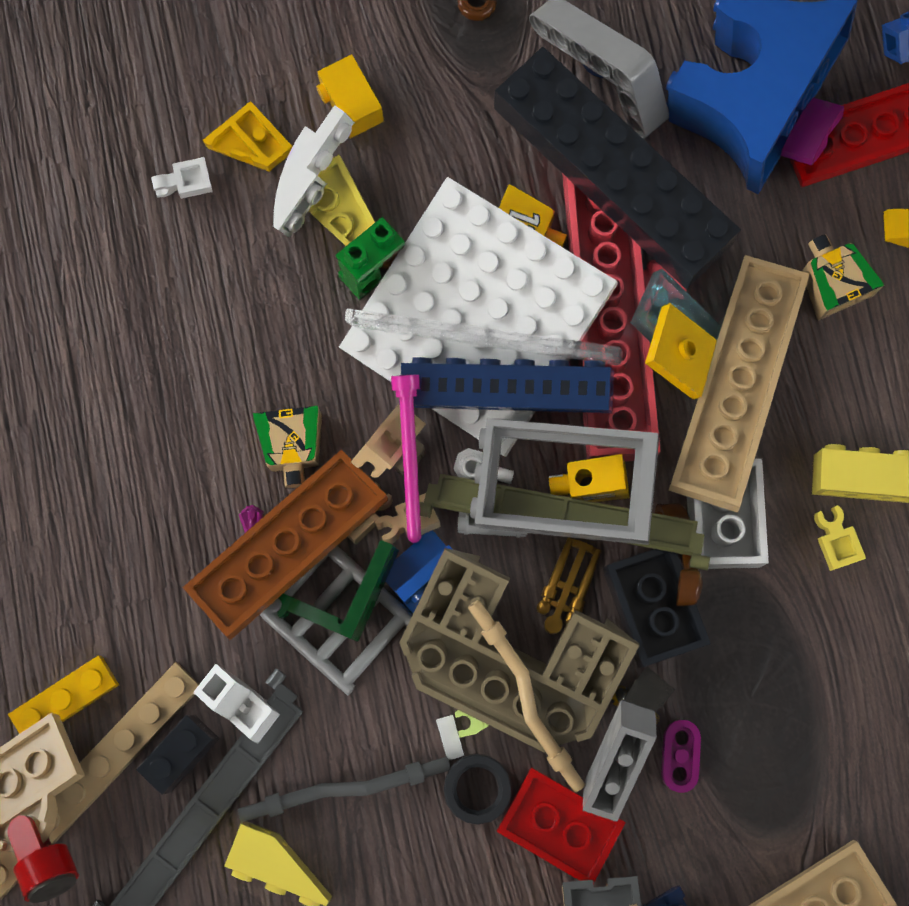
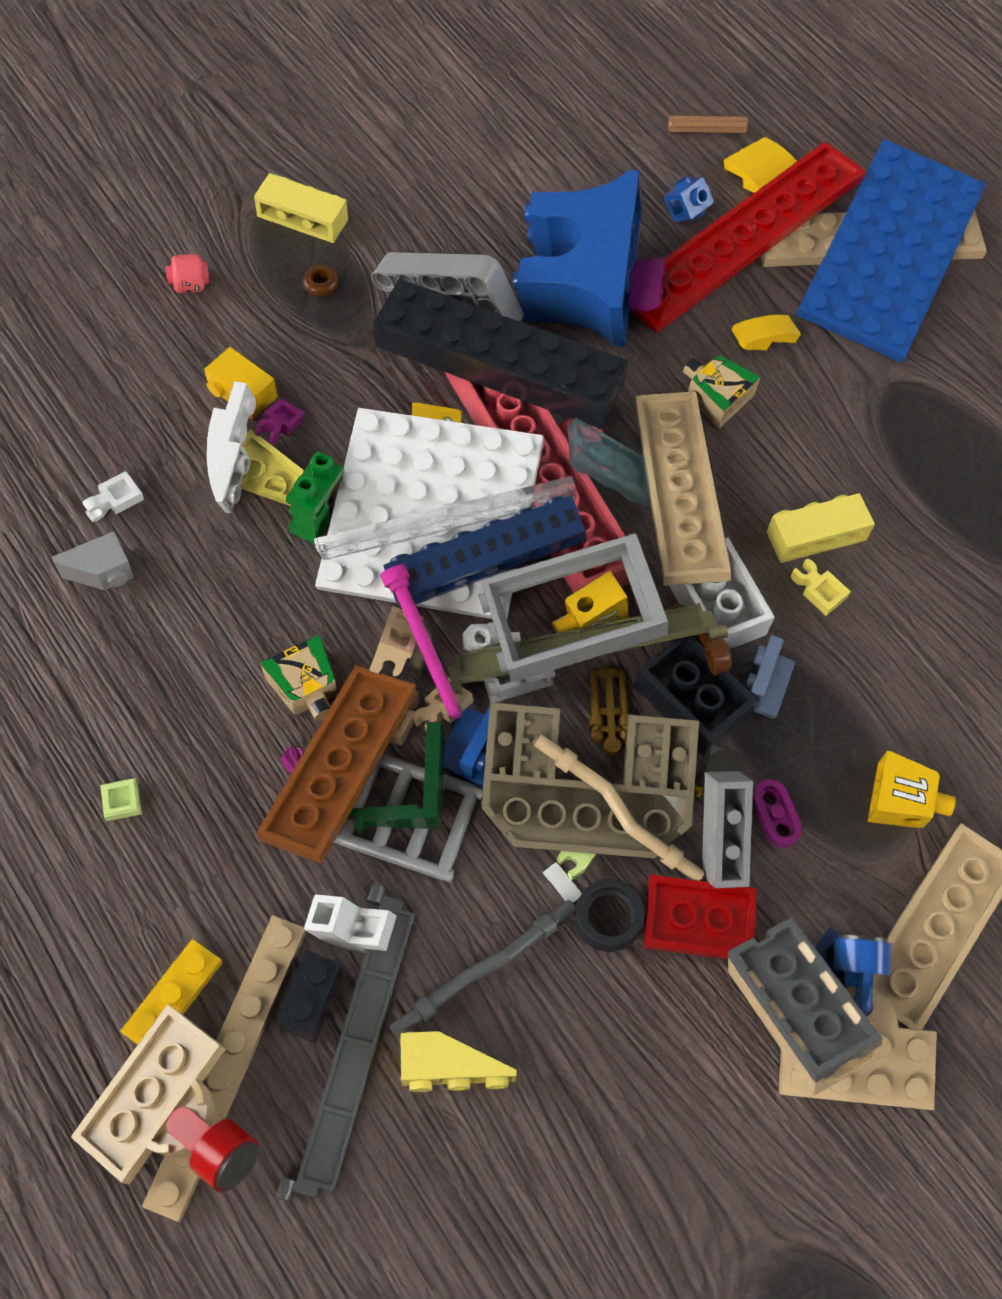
camera: 30 degrees left, 15 degrees down
(85, 494) = (121, 799): none -> yellowish green tile
(145, 247) = (95, 563): none -> light grey slope
(250, 139) = (162, 445): yellow wing -> none
(372, 151) = (280, 418): none -> magenta plate
(681, 351) = (622, 474): yellow plate -> none
(739, 619) = (771, 677): none -> sand blue bracket
(819, 789) = (906, 793): none -> yellow torso

